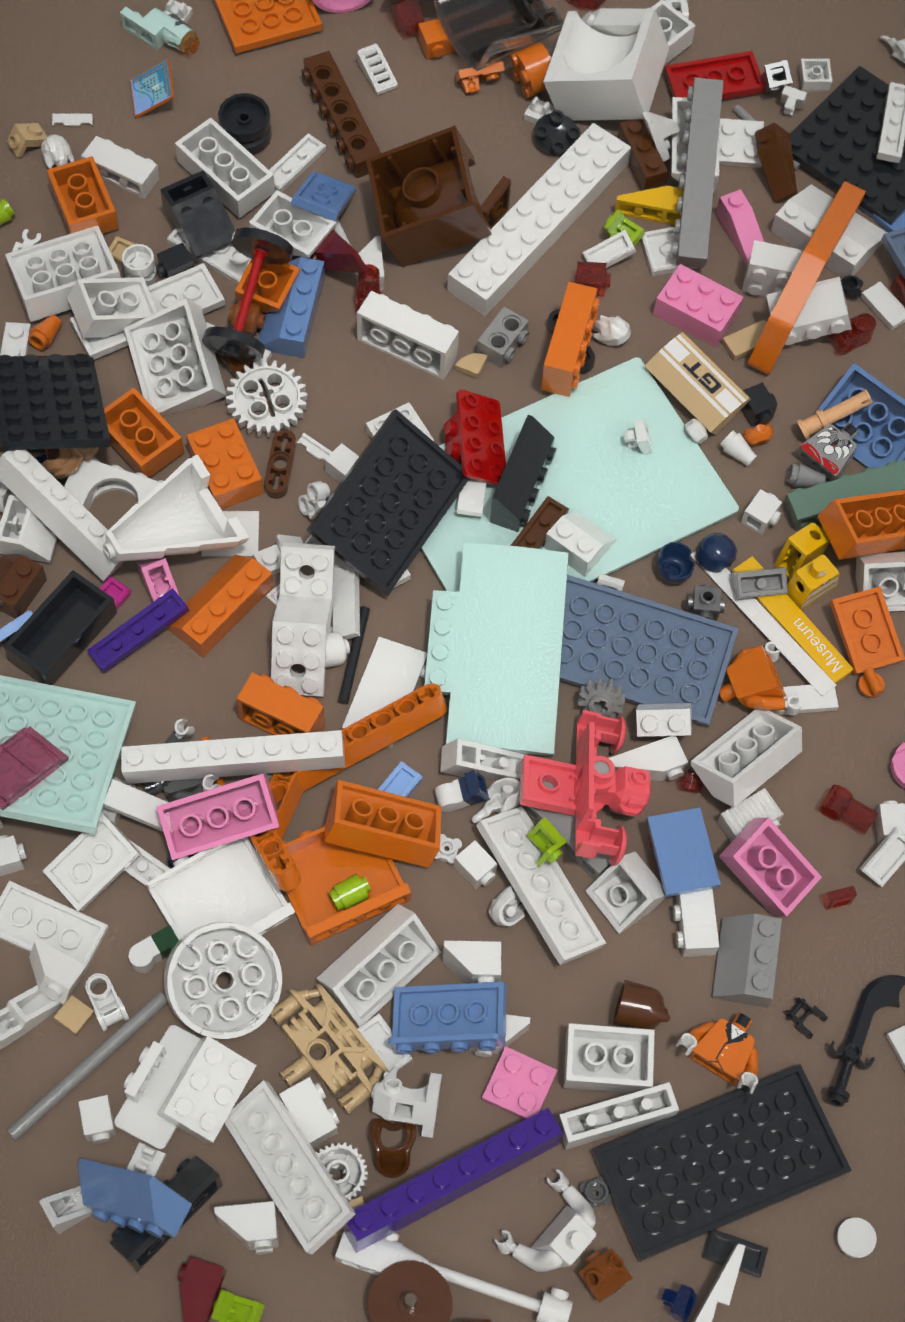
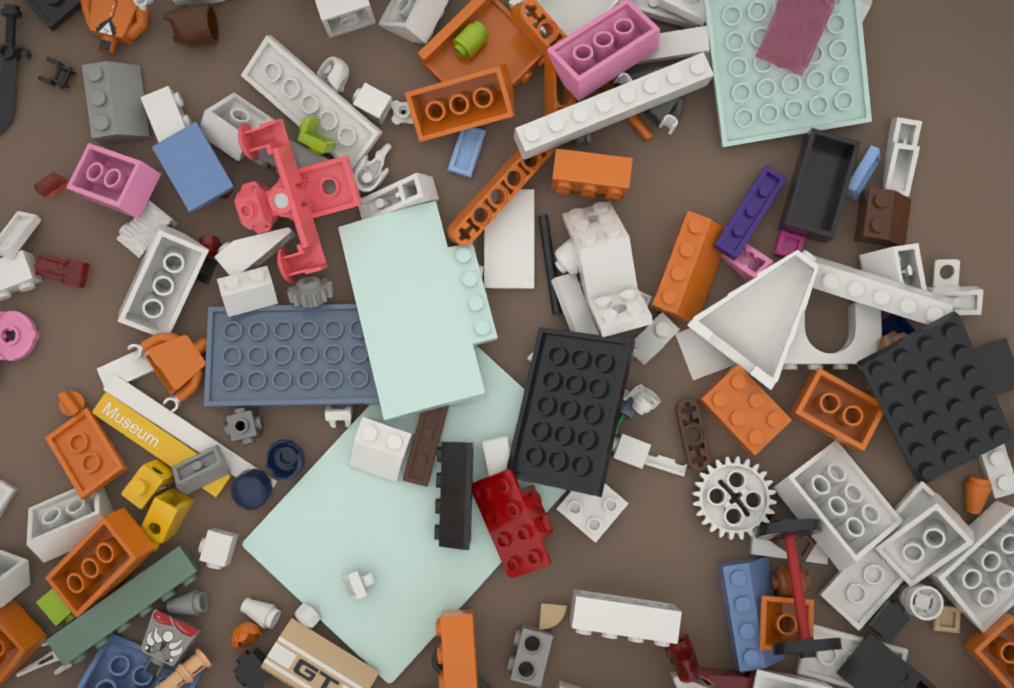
camera: 165 degrees right, 20 degrees up
(462, 792) = (406, 162): leg -> none

